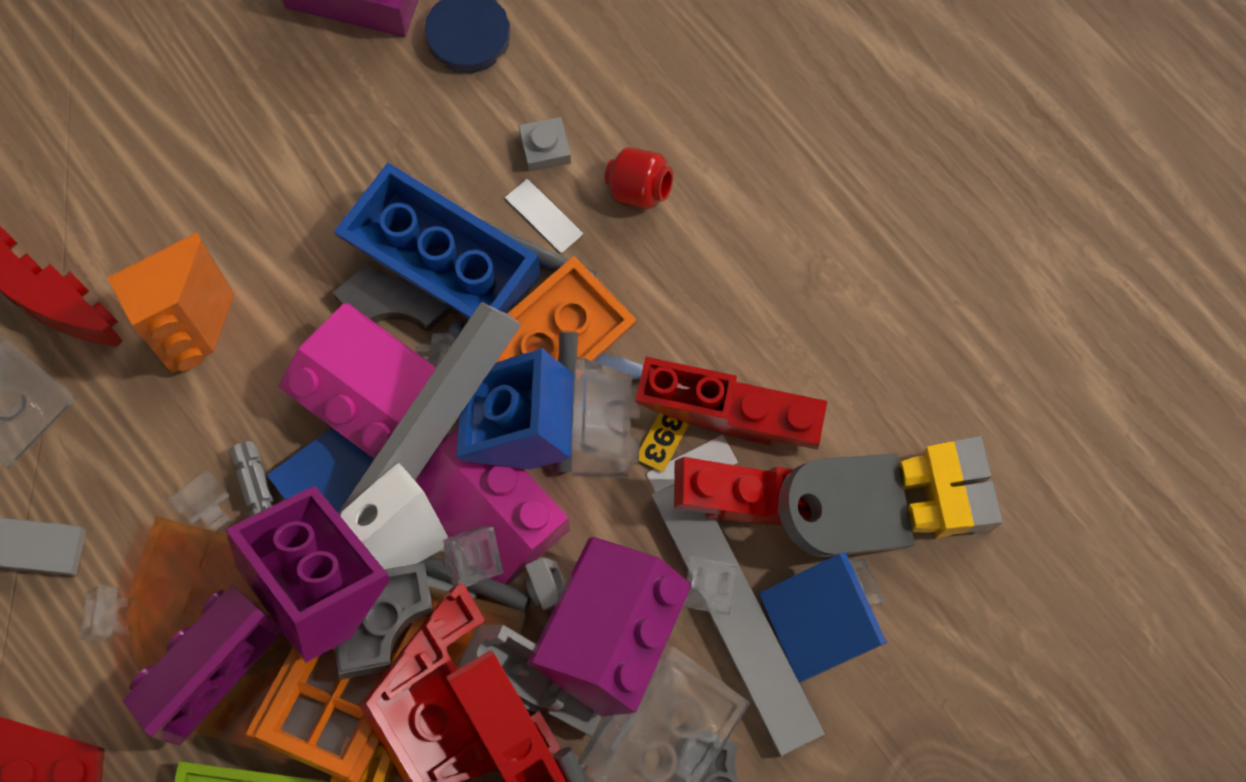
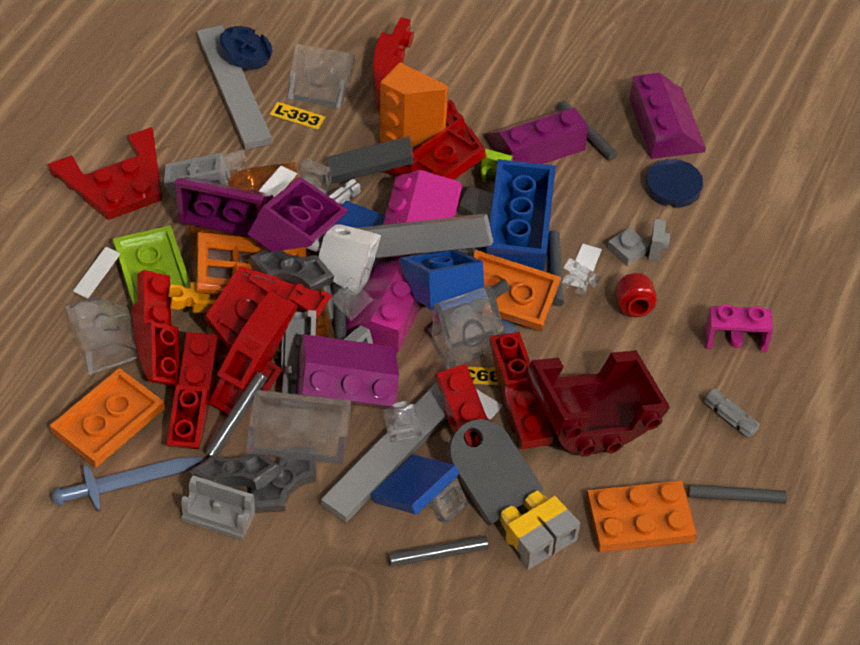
camera: 65 degrees right, 20 degrees down
(51, 466) = (297, 115): none -> yellow sticker
(105, 680) = (209, 168): none -> light grey hinge
(187, 566) = (278, 181): none -> white sticker
(216, 404) = (371, 159): none -> dark grey tile
(271, 307) = (447, 152): none -> red wing
(295, 157) = (542, 137): none -> magenta slope
(313, 88) = (594, 137): none -> dark grey bar
(319, 240) = (490, 162): none -> lime tile
(560, 101) = (659, 240): none -> light grey plate
(571, 225) = (580, 274): none -> clear tile
(751, 83) = (737, 321): none -> dark pink window
(805, 314) = (598, 409): none -> dark red cylinder
(868, 165) = (732, 412): none -> light grey axle
(922, 635) = (438, 551): none -> dark grey bar
(973, 355) = (641, 516): none -> orange plate
(987, 226) = (738, 494): none -> dark grey bar

